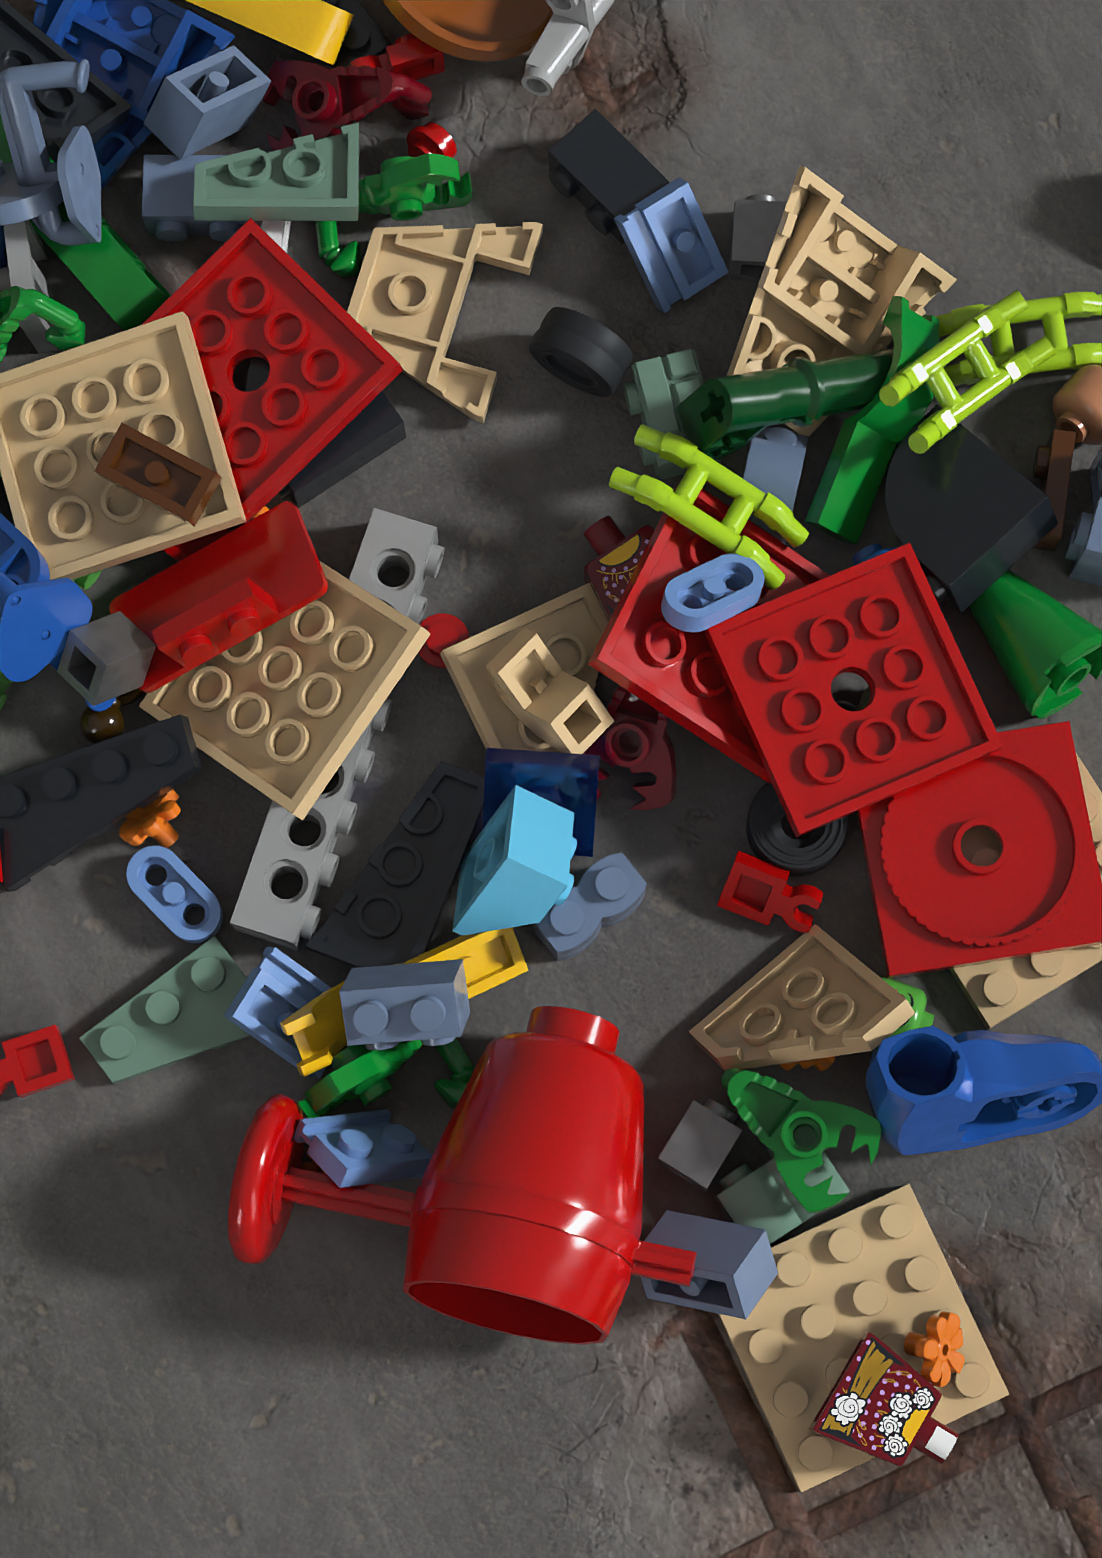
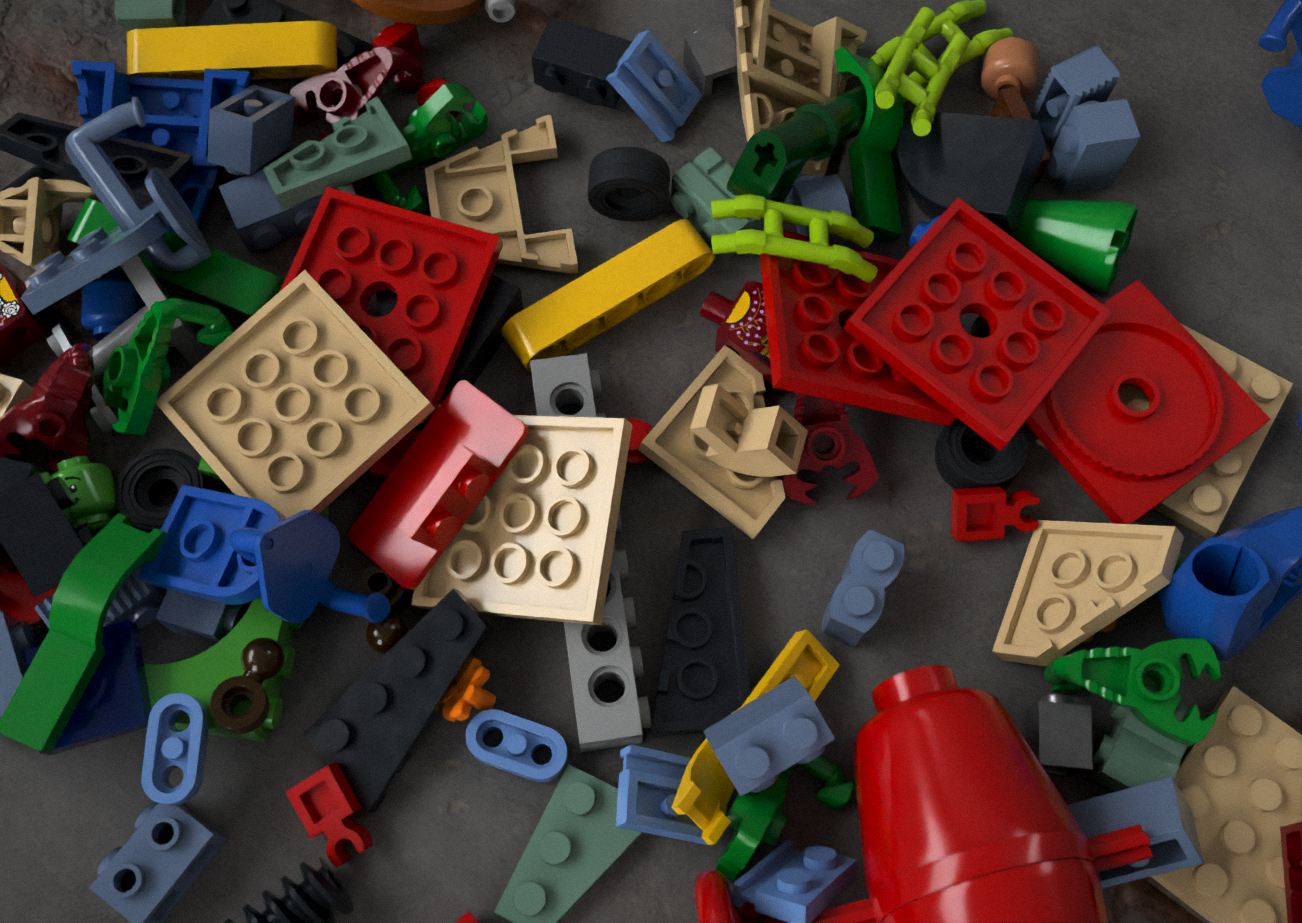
camera: 30 degrees left, 10 degrees down
(106, 658) = (368, 571): flat silver brick -> none
(158, 474) = (344, 397): reddish brown plate -> none
(498, 466) = (608, 293): none -> yellow beam
(516, 865) = (793, 581): medium azure slope -> none
(557, 777) = (781, 523): clear blue tile -> none
(704, 594) = (837, 293): medium blue plate -> none

